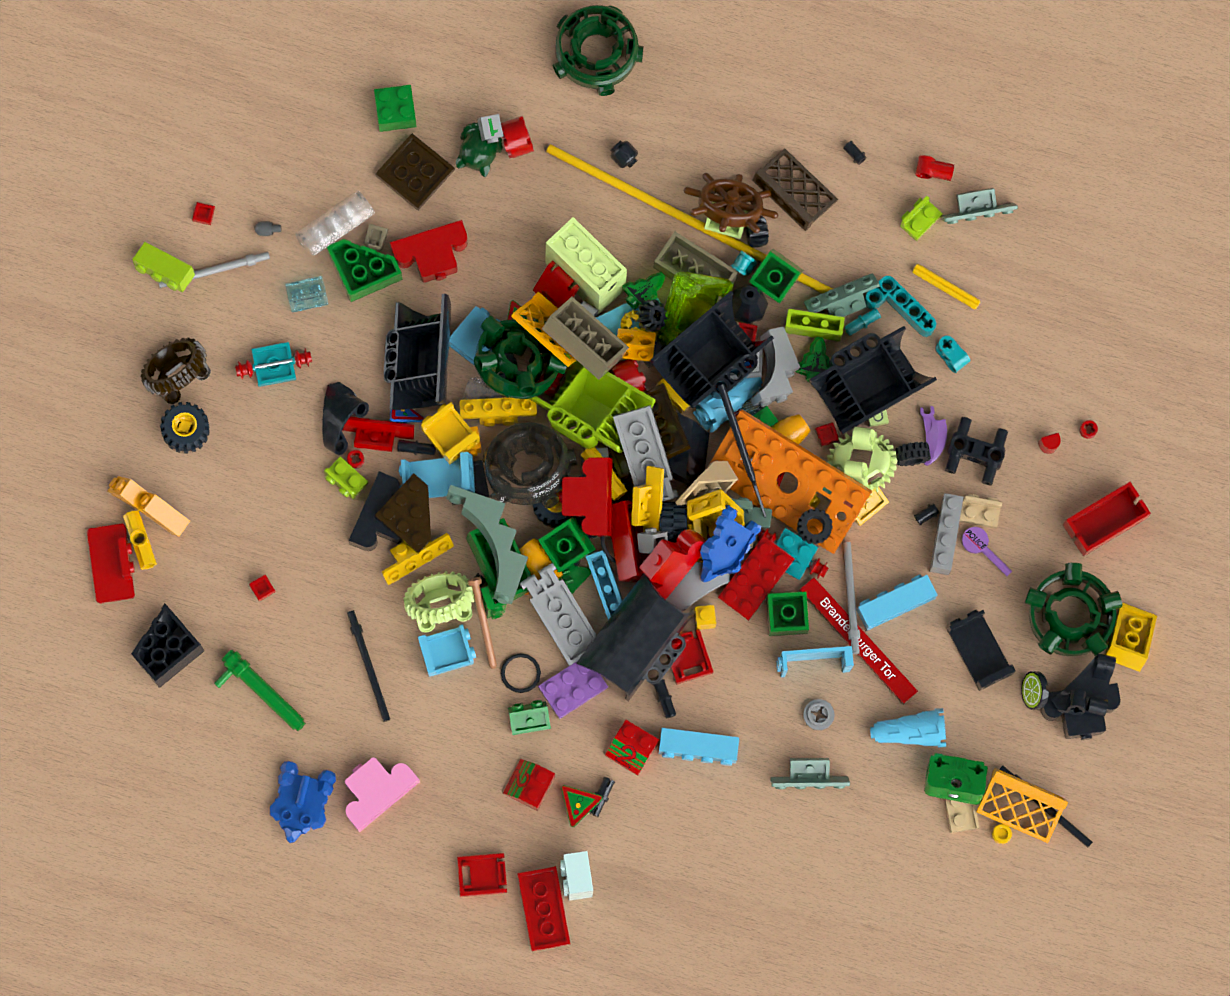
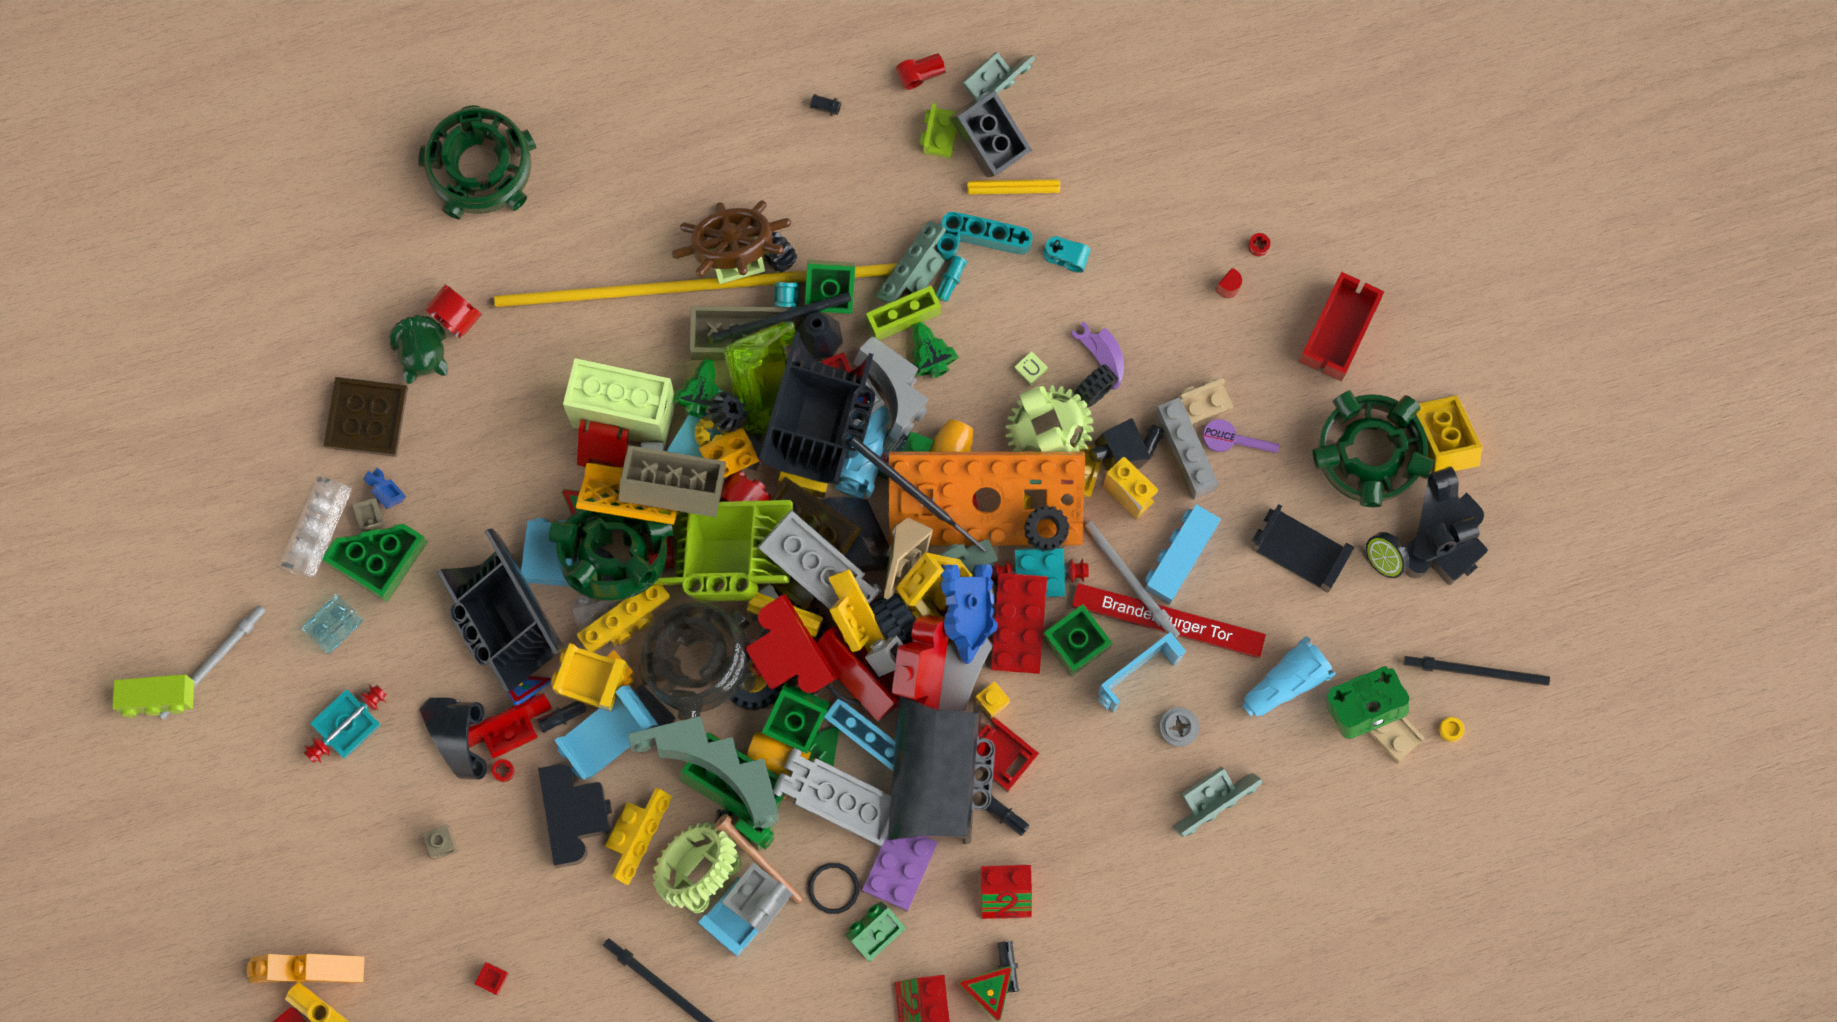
camera: 30 degrees left, 0 degrees up
(167, 361) = (225, 797): dark brown piece -> none
(185, 427) = (291, 856): black wheel -> none
(203, 213) = (160, 607): red tile -> none
(266, 228) = (242, 580): dark grey cylinder -> none
(285, 479) = (440, 842): none -> dark tan brick
(346, 478) = (505, 798): lime bracket -> none
(395, 108) = (299, 361): green brick -> none
(395, 227) = (385, 491): none -> blue plate
(409, 514) = (601, 793): dark brown plate -> none
(432, 251) = (440, 491): red brick -> none
(465, 645) = (757, 898): none -> light grey plate
(490, 128) = (419, 318): light grey brick -> none
(624, 154) = (581, 257): black head -> none
(693, 266) = (736, 331): none -> black bar
(699, 746) = (1076, 842): medium azure brick -> none
(782, 197) = (779, 198): dark brown fence -> none
(827, 434) = (991, 421): red tile -> none
(869, 381) = (1001, 338): black panel -> none
(889, 535) = (1130, 488): none -> yellow panel
(901, 505) = (1120, 442): none -> black torso
(952, 240) = (990, 133): none -> black brick
(976, 451) = (1159, 340): black piece -> none
(1030, 790) = (1454, 664): light orange fence -> none

